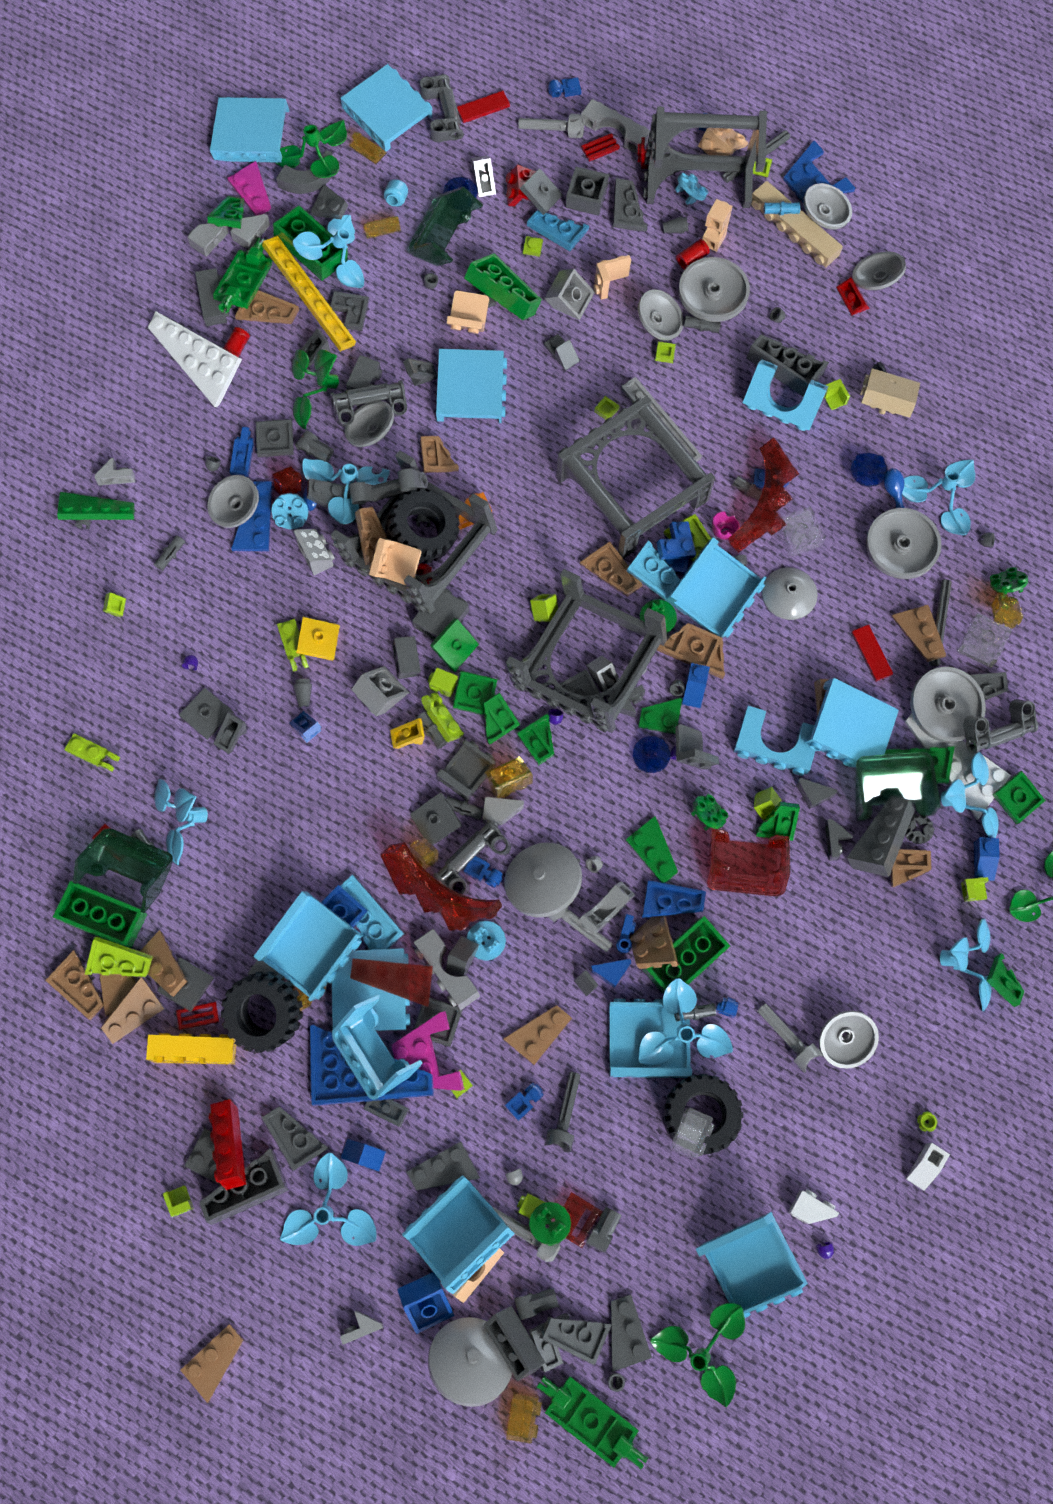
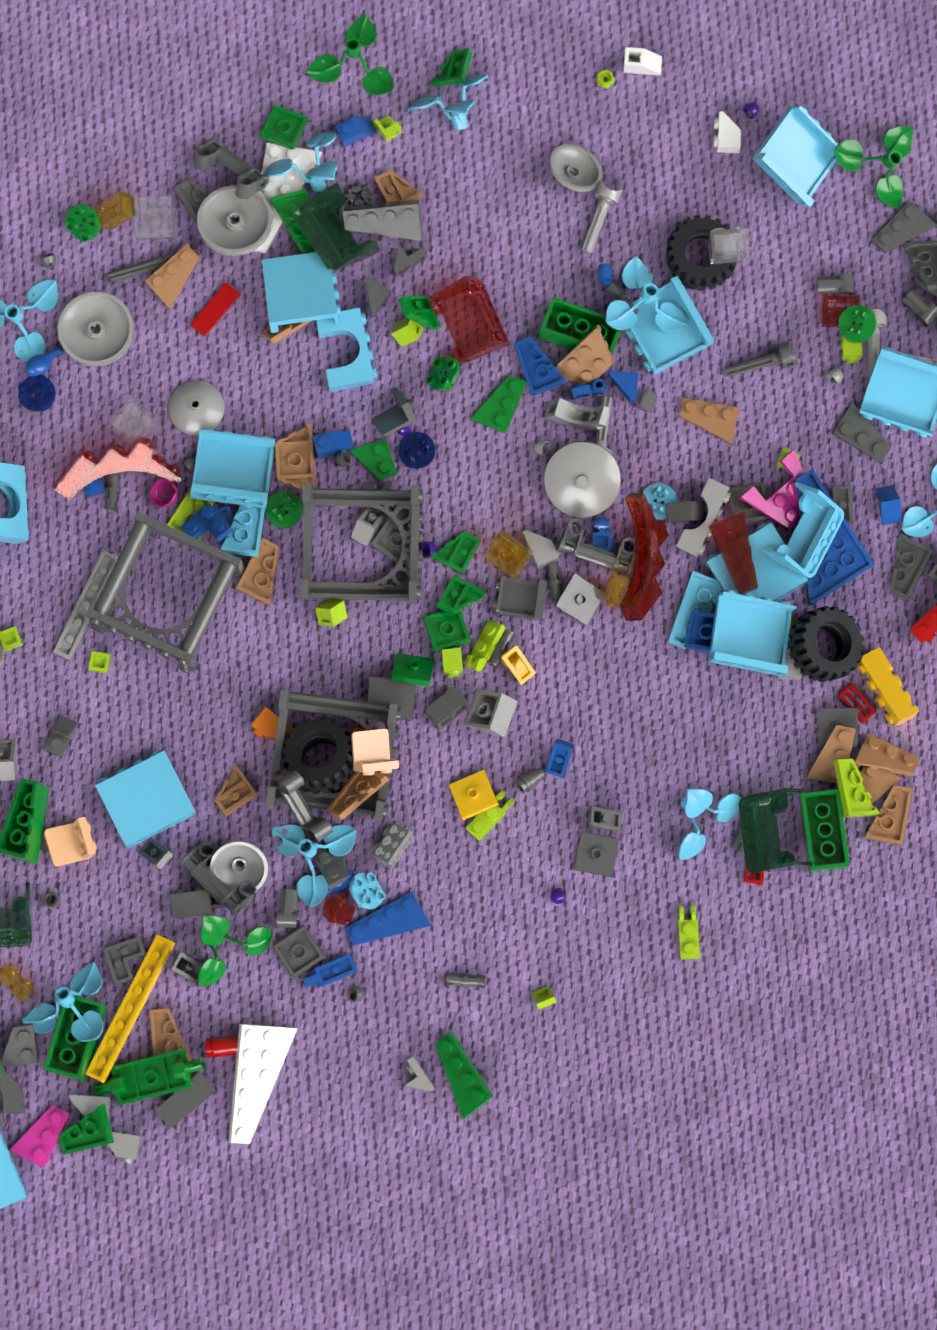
camera: 115 degrees left, 5 degrees up
(227, 496) = (395, 956): light grey dish -> none
(520, 1105) = (776, 401): blue plate -> none

